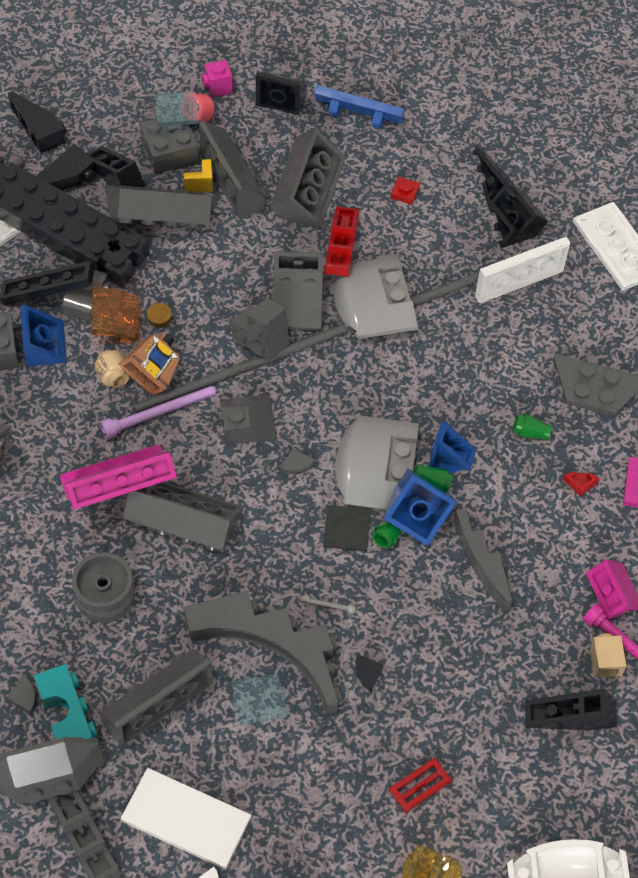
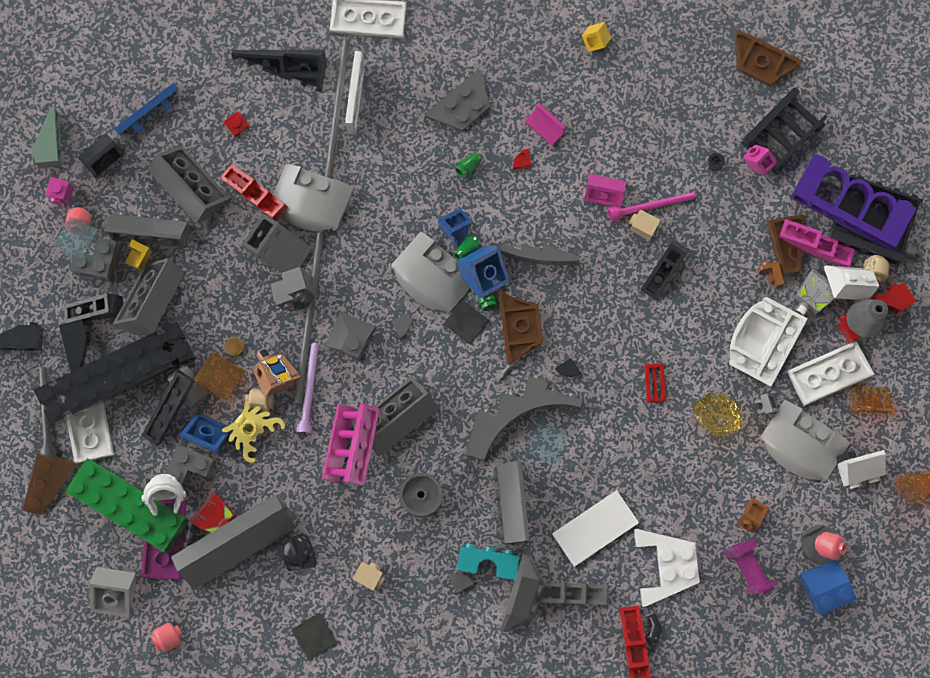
camera: 55 degrees left, 20 degrees up
(73, 371) = (247, 428): none -> light yellow animal
(262, 46) = (48, 143): none -> sand green slope
(381, 586) = (520, 326): none -> reddish brown wing

